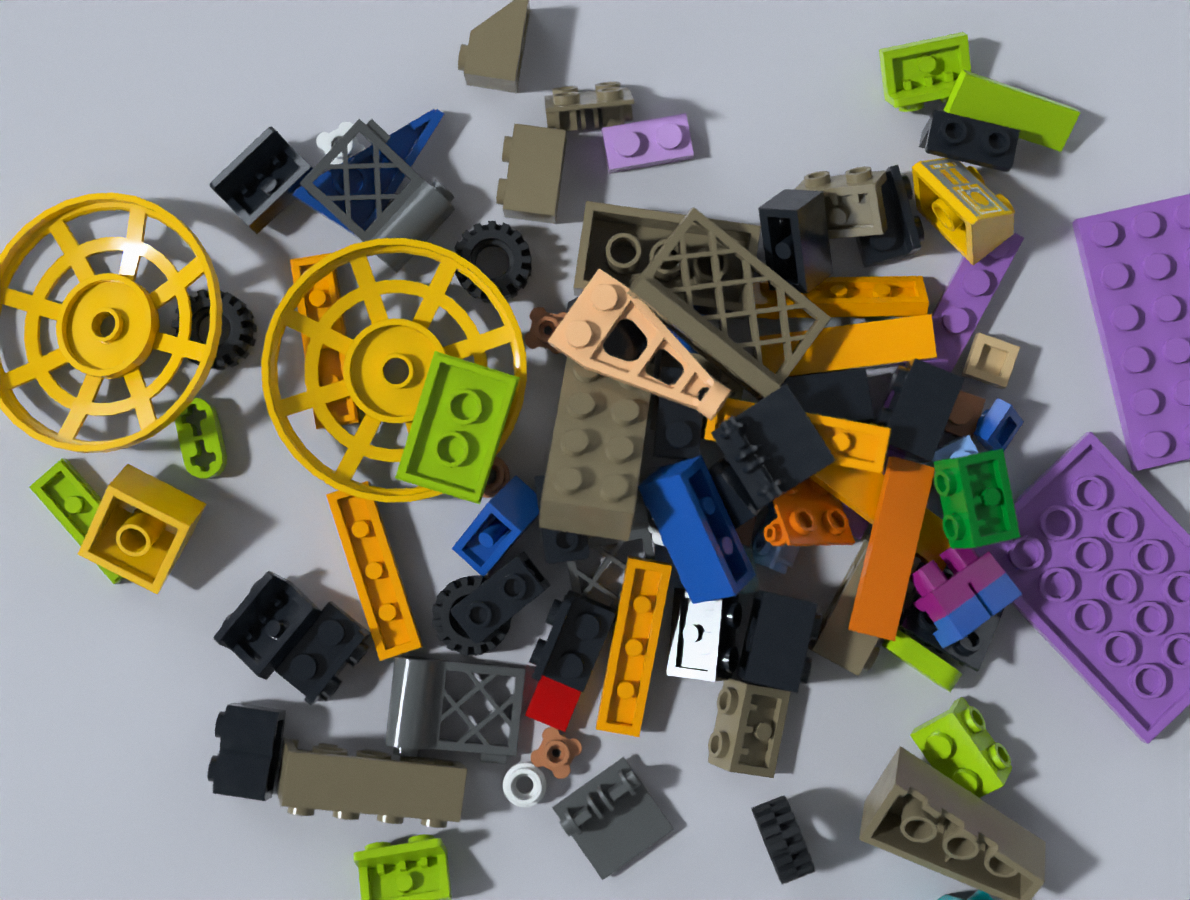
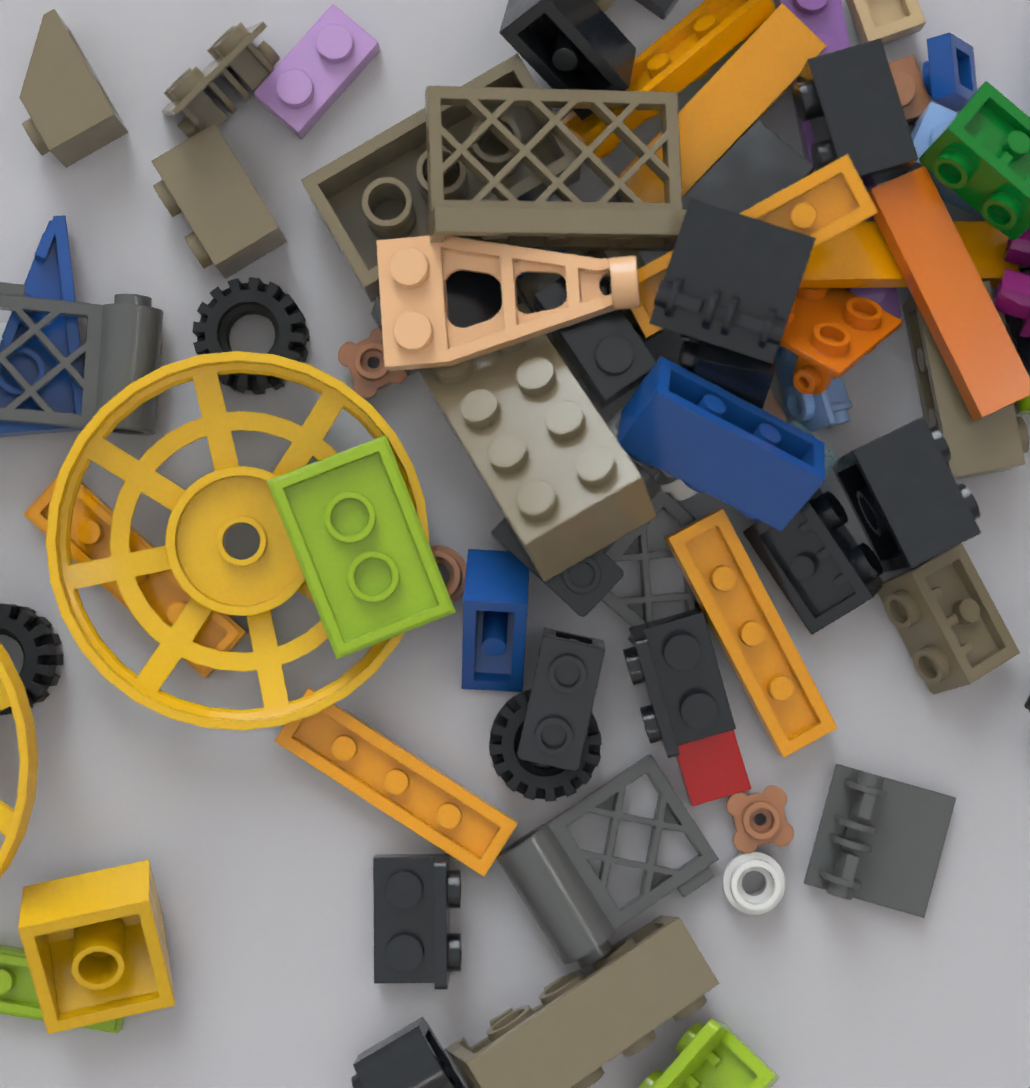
camera: 35 degrees left, 0 degrees up
(211, 436) = (94, 781): lime beam -> none
(267, 624) = (325, 937): black bracket -> none

